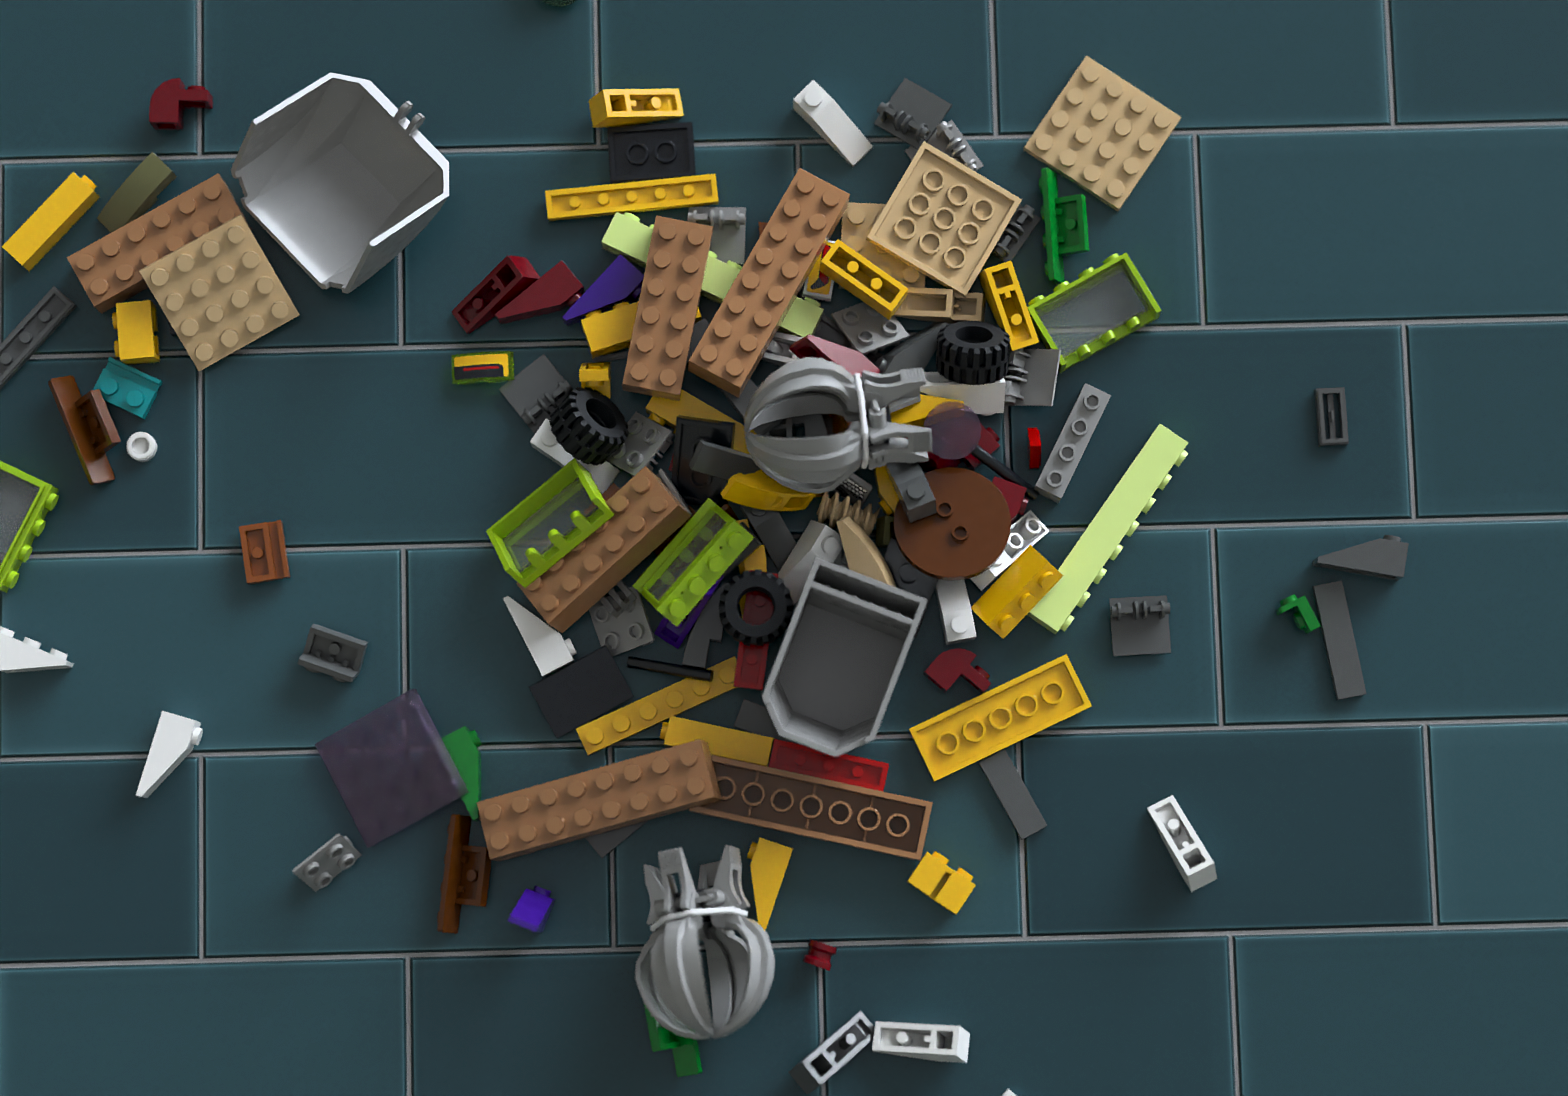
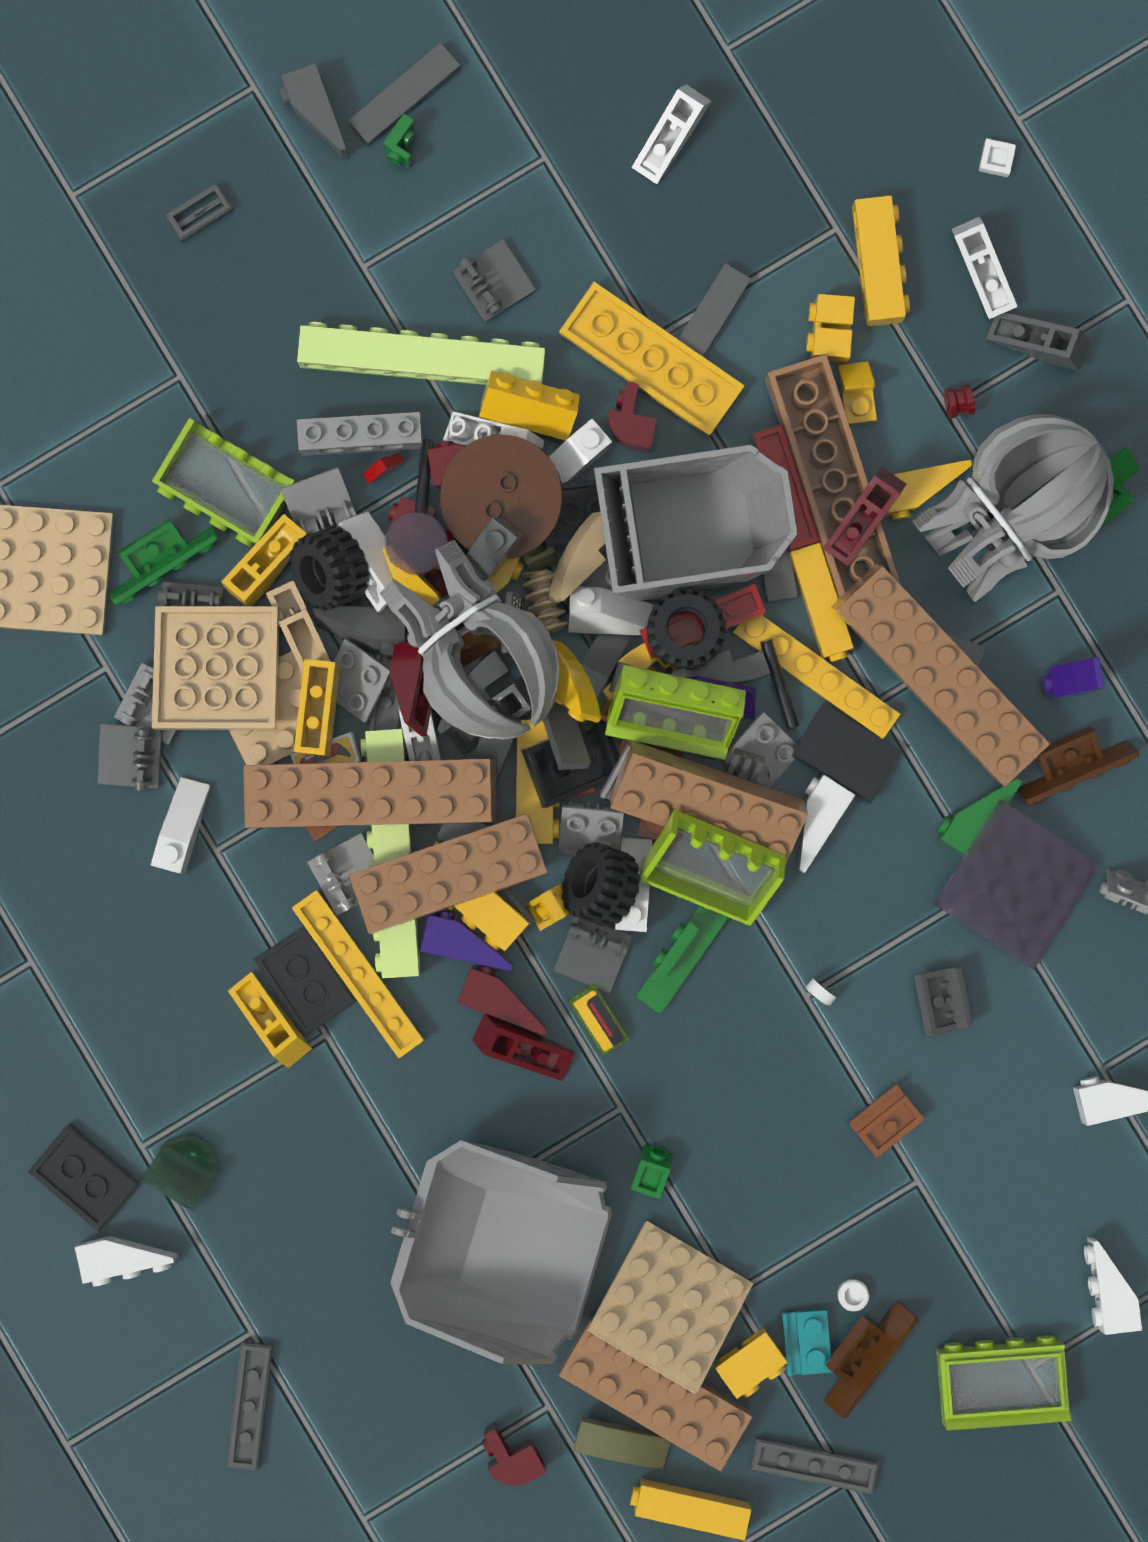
camera: 115 degrees left, 5 degrees up
(336, 341) = (652, 1171): none -> green bracket
(398, 559) = (821, 992): none -> white tile
(492, 460) = (679, 960): none -> green bracket
(766, 812) = (864, 516): none -> dark red slope
(876, 874) = (857, 392): none -> yellow slope
(977, 956) = (879, 261): none -> yellow brick

